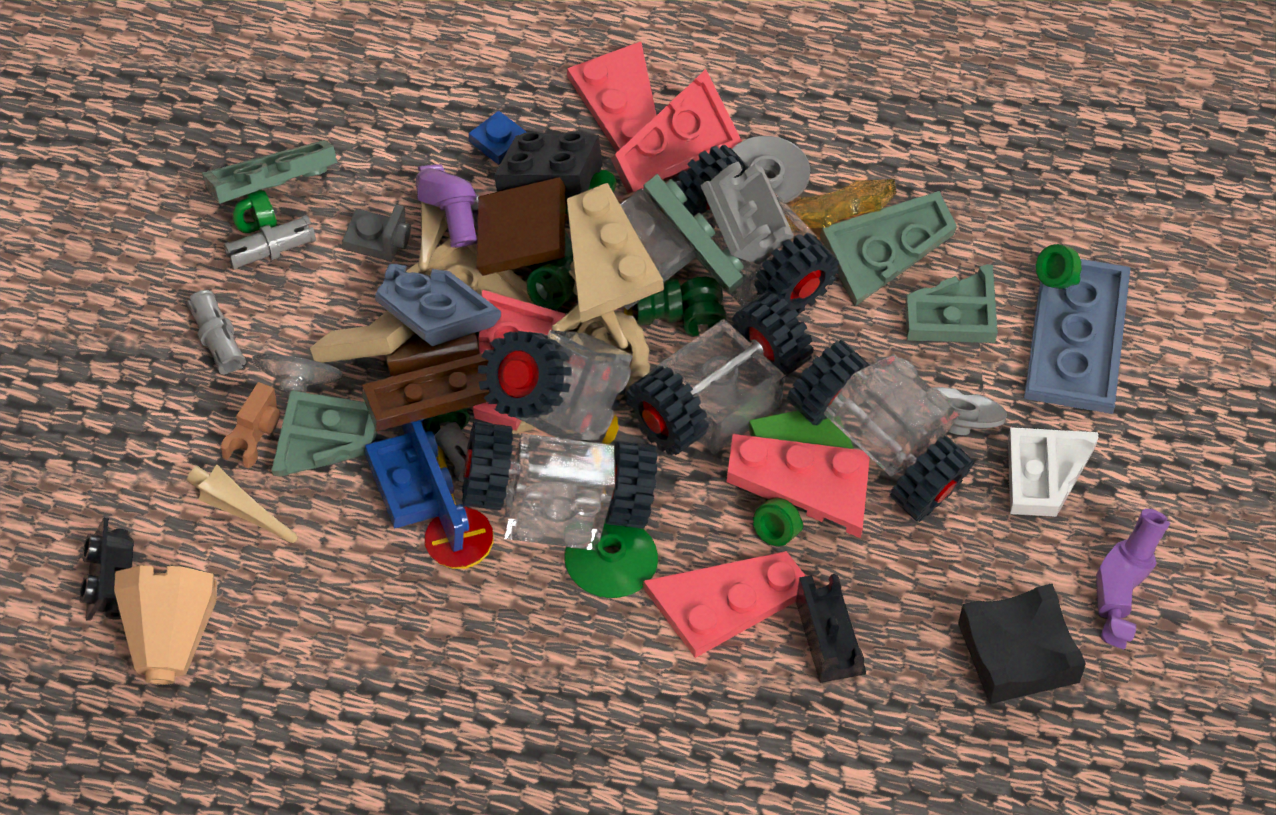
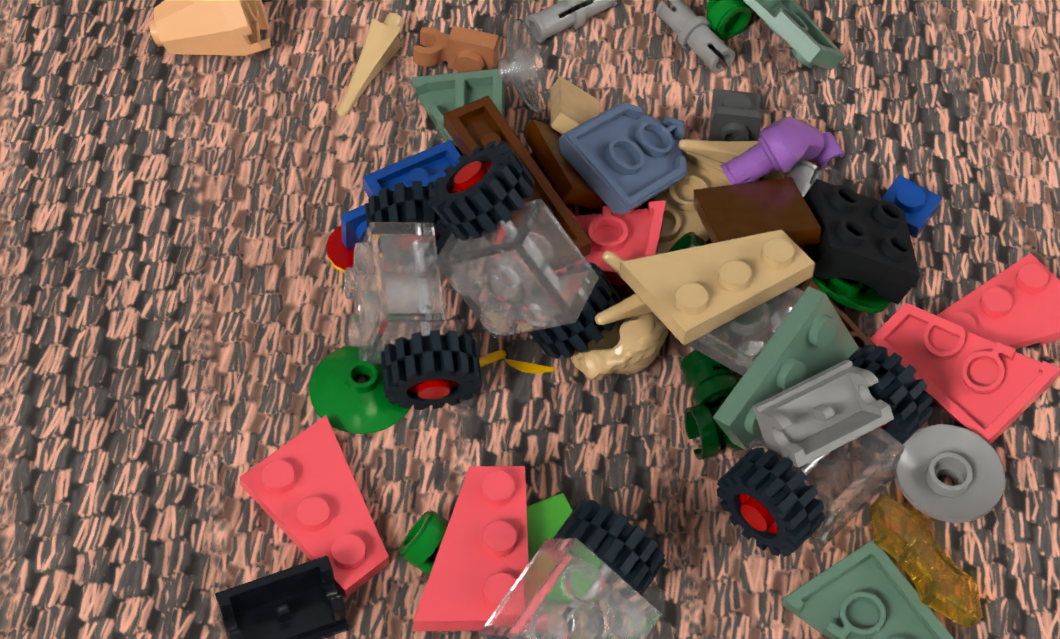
camera: 80 degrees right, 0 degrees up
(722, 378) = (596, 439): brick -> none

